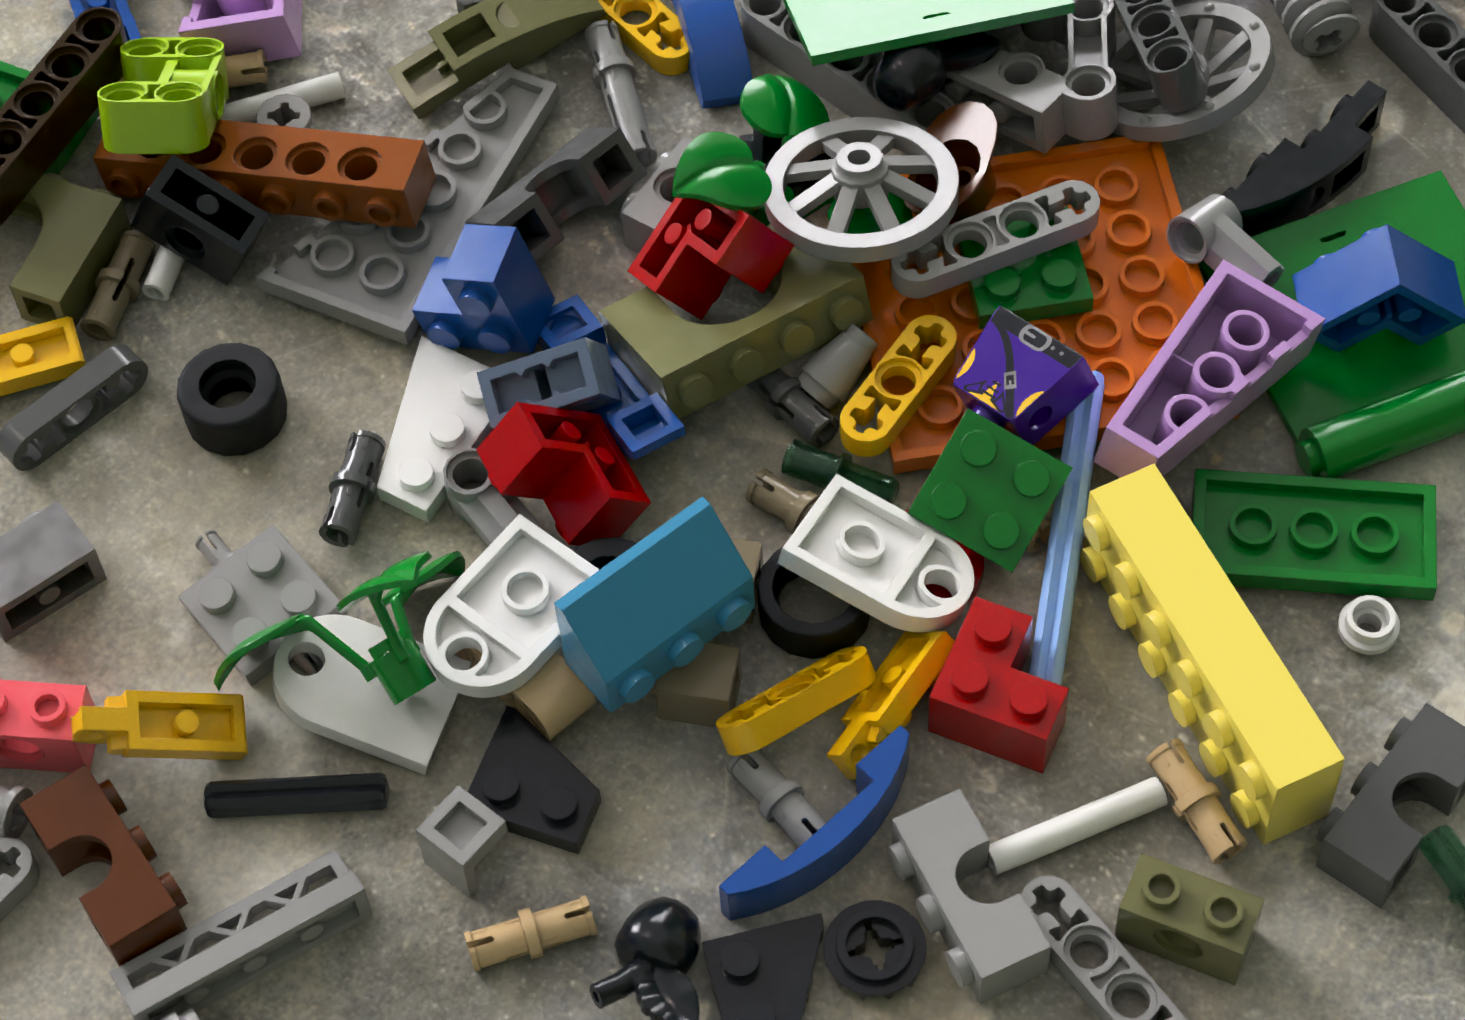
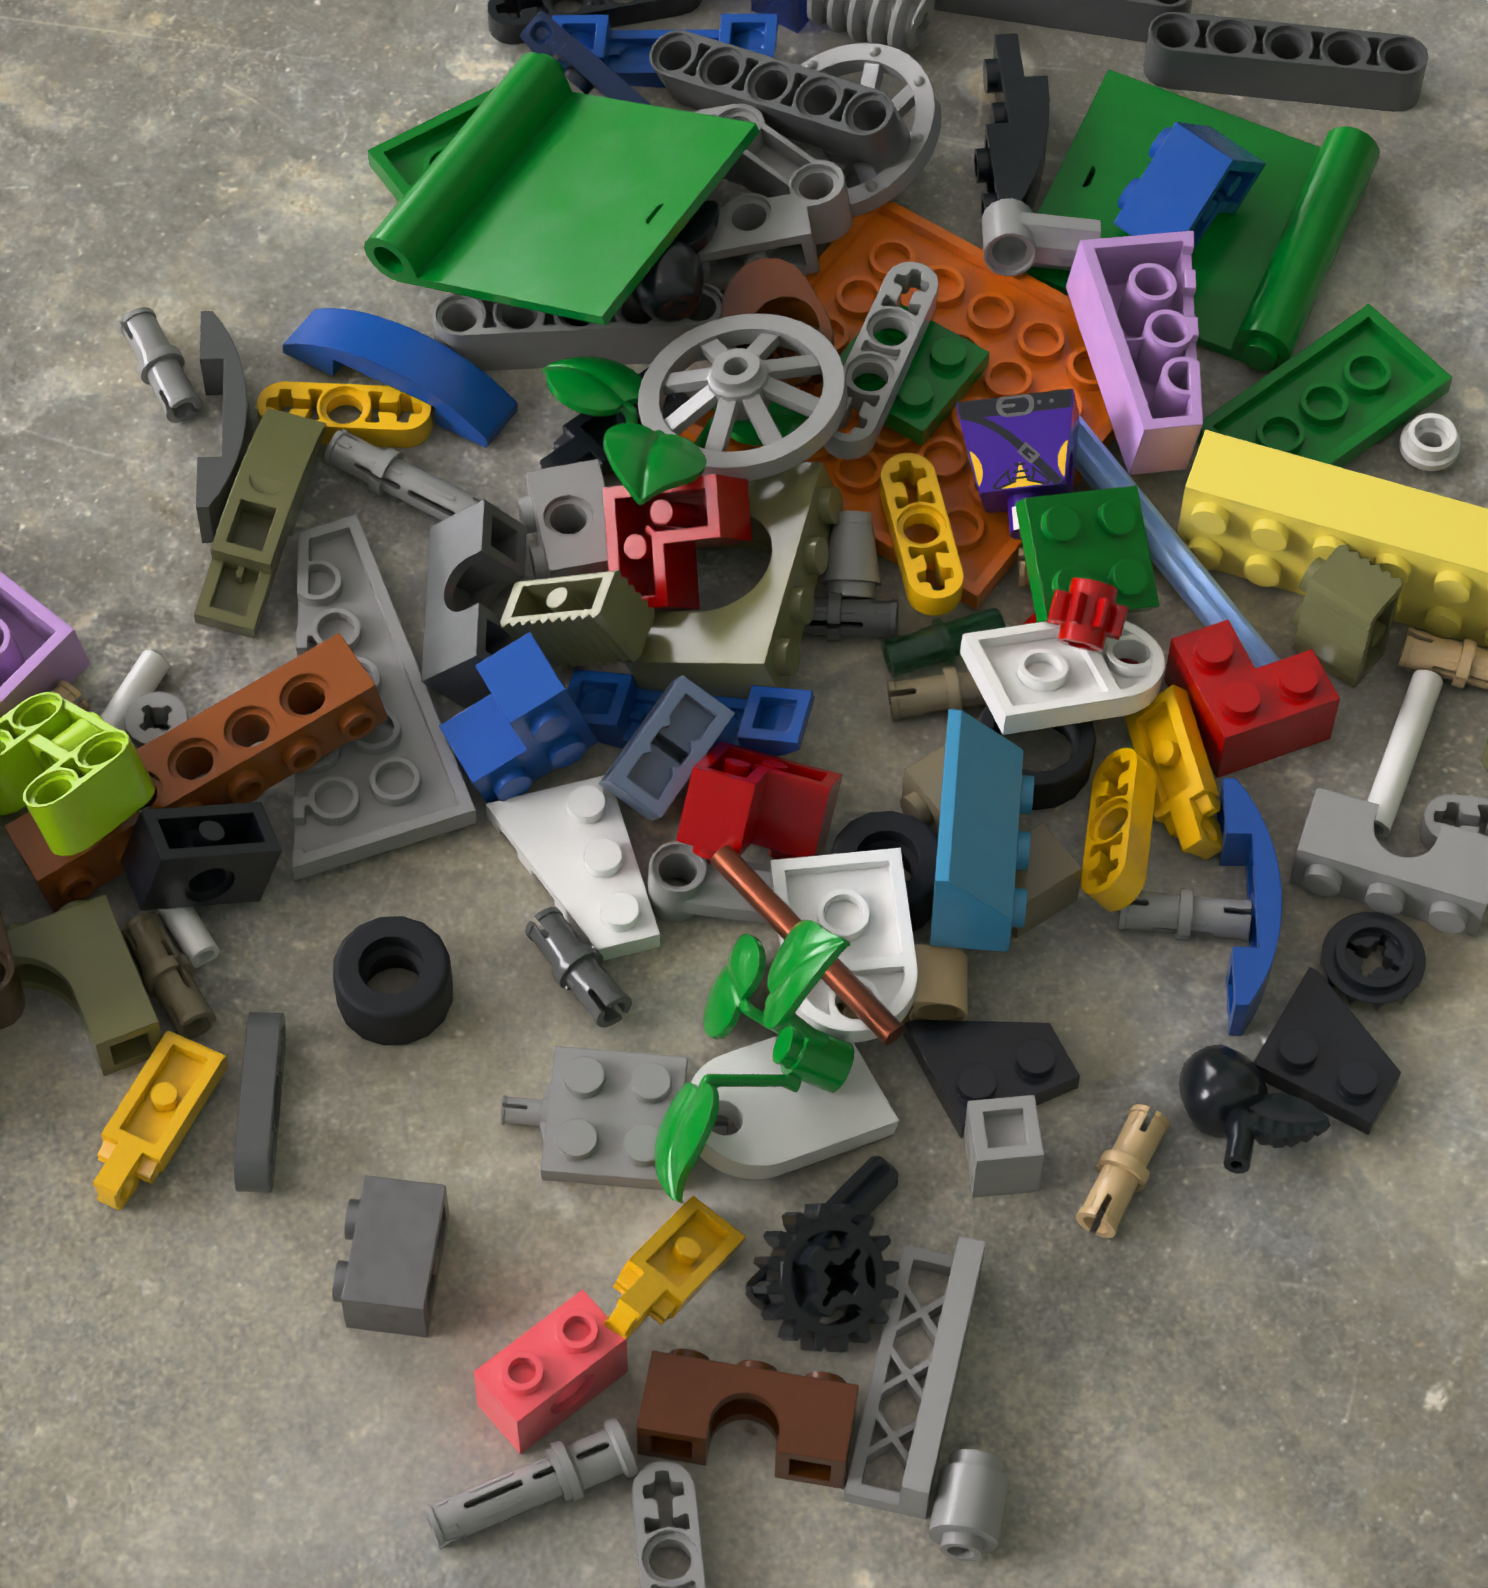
camera: 50 degrees left, 0 degrees up
(254, 847) = (826, 1277): none -> black gear
(470, 589) = (783, 920): none -> copper bar
(590, 256) = (580, 618): none -> olive brick
(922, 526) = (1087, 614): none -> red gear
(1130, 687) = (1346, 613): none -> olive brick

